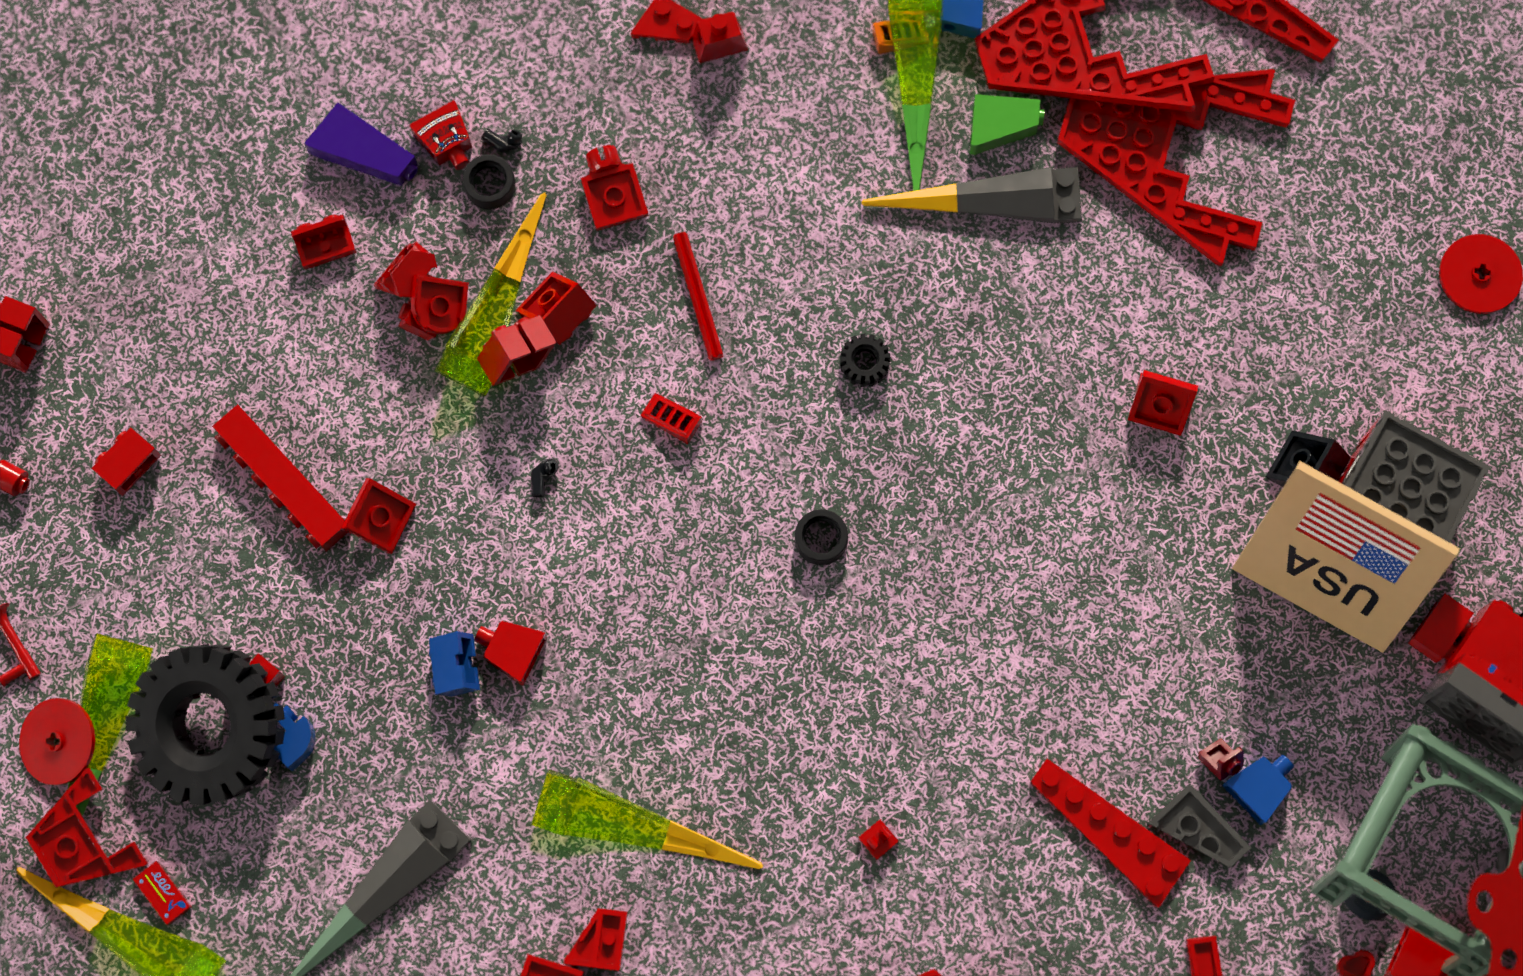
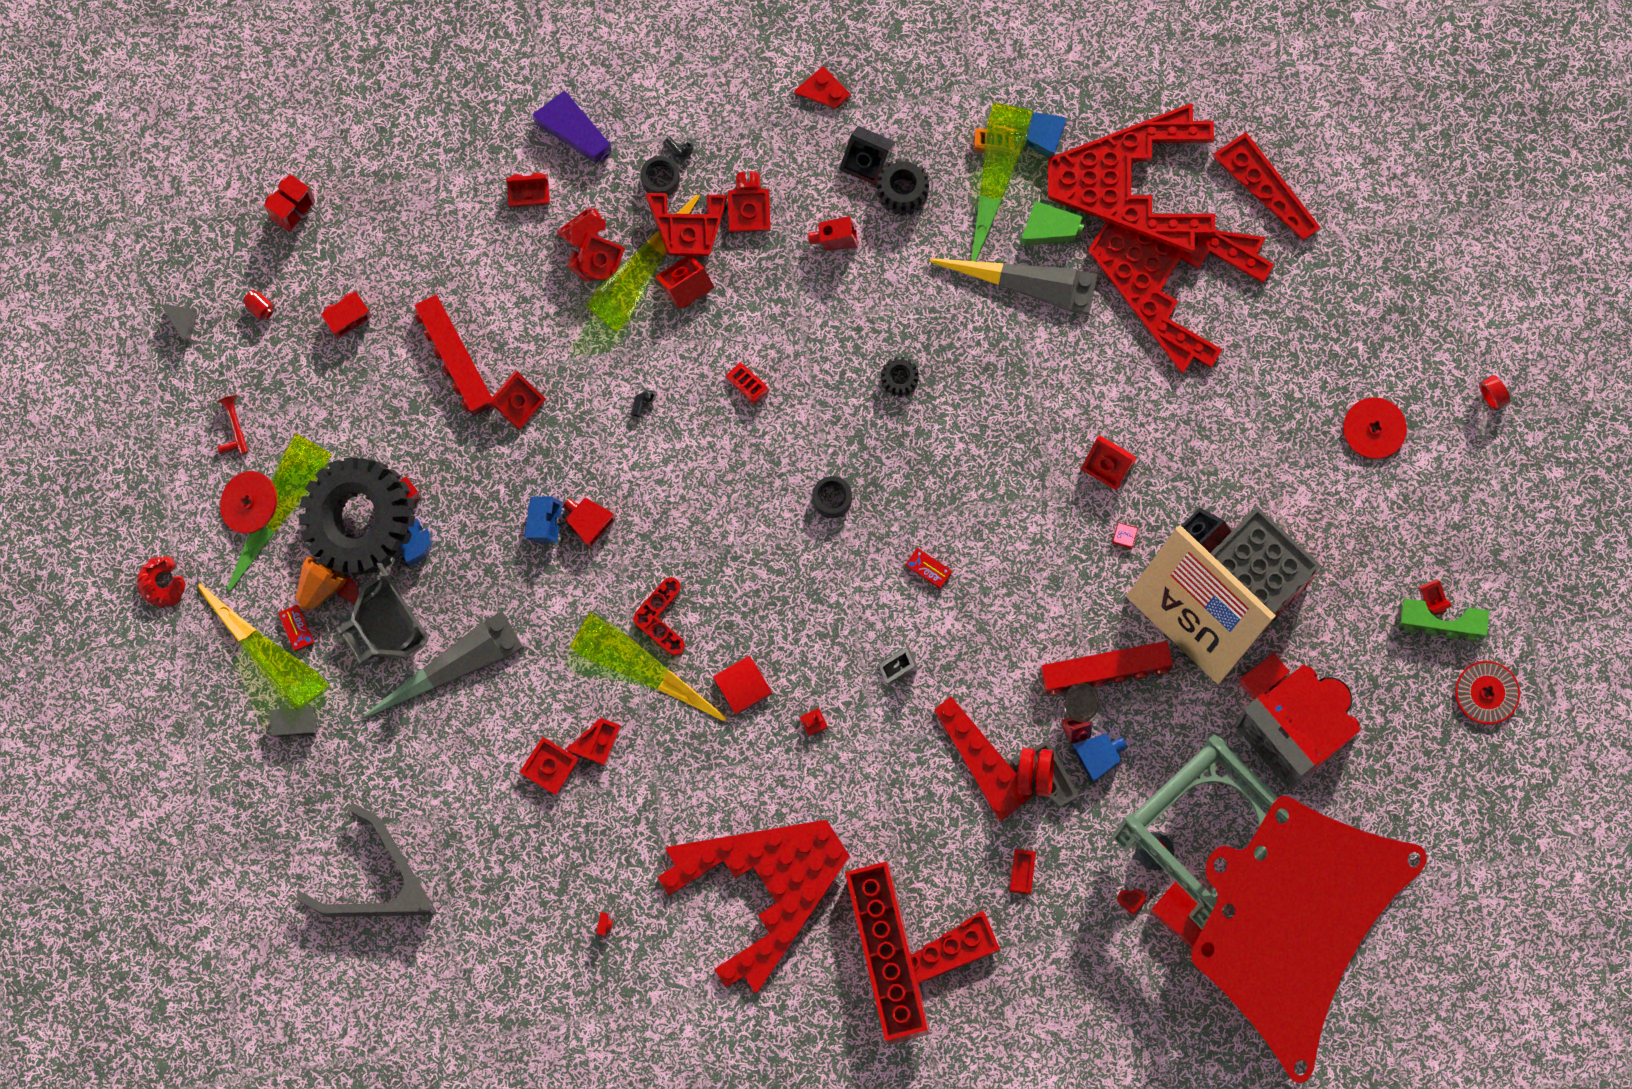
camera: 15 degrees right, 0 degrees up
(69, 846) = (239, 577): red wing -> none
(175, 828) = (317, 584): none -> orange cone
(221, 825) = (349, 591): none -> red tile
(276, 857) = (383, 622): none -> dark grey piece
(444, 135) = (636, 134): red torso -> none
(519, 345) = (651, 302): red piece -> none
(542, 244) = (687, 232): none -> red wing
(635, 761) = (654, 622): none -> red beam
(698, 296) = (790, 299): red axle -> none
(718, 37) = (858, 111): red torso -> none
(733, 199) = (835, 234): none -> red torso
(745, 90) = (866, 155): none -> black slope
(772, 815) = (742, 685): none -> red slope
(808, 98) = (905, 202): none -> black tyre
(968, 736) = (898, 666): none -> dark grey slope
(970, 598) = (928, 568): none -> red tile
(1192, 832) = (1032, 771): none -> red wheel
(1208, 490) = (1125, 535): none -> bright pink tile
(1219, 723) = (1081, 702): none -> clear smoke piece
(1235, 668) = (1107, 667): none -> red brick

